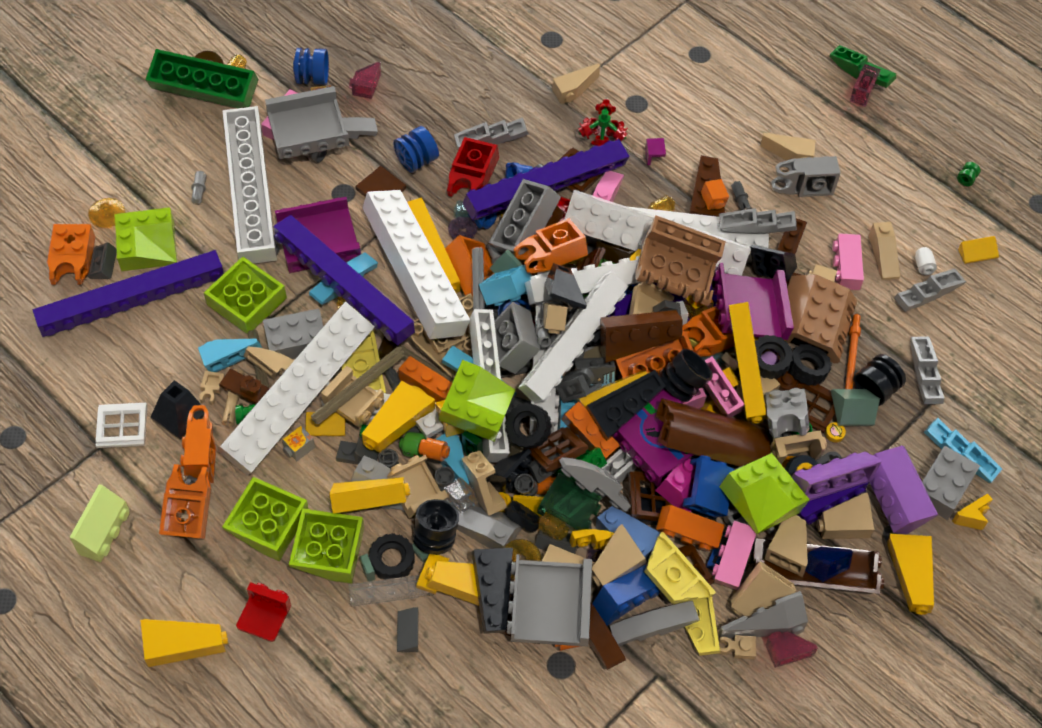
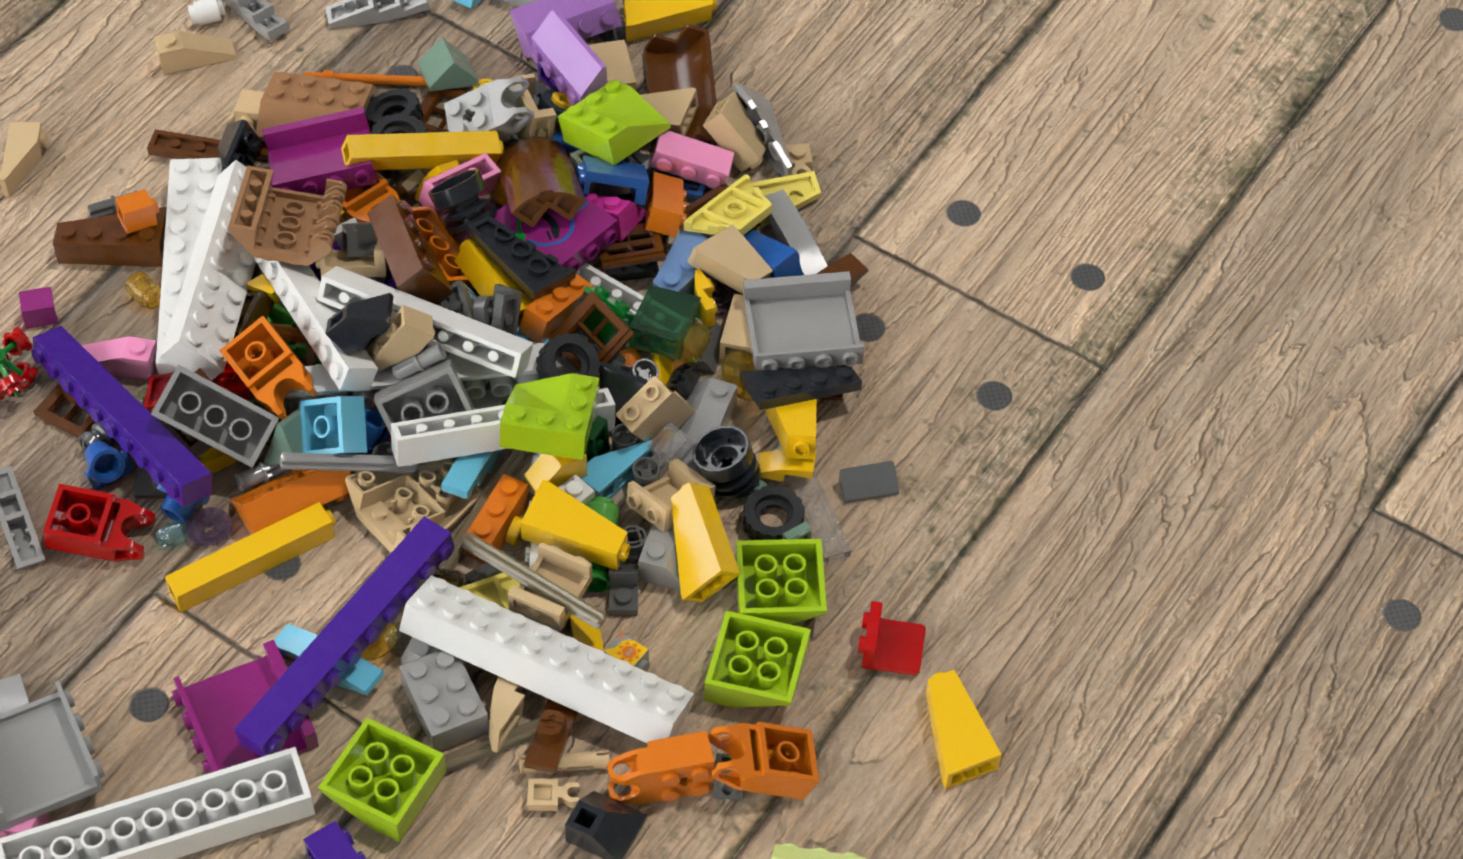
camera: 100 degrees left, 5 degrees down
(225, 352) = (495, 788): medium azure slope -> none
(241, 412) = (591, 734): green wheel -> none
(380, 181) = (135, 650): reddish brown tile -> none
(415, 264) = (296, 557): white brick -> none
(416, 149) = (66, 600): blue wheel -> none
(434, 449) = (615, 477): orange brick -> none
(593, 478) = (634, 284): light grey slope -> none
(757, 222) = (179, 162): light grey slope -> none
(788, 648) = (794, 114): clear pink slope -> none
(808, 176) = (79, 124): light grey brick -> none
(828, 562) = (677, 75): clear blue slope -> none
(848, 261) = (215, 84): bright pink brick -> none
(881, 377) = (407, 39): black wheel -> none

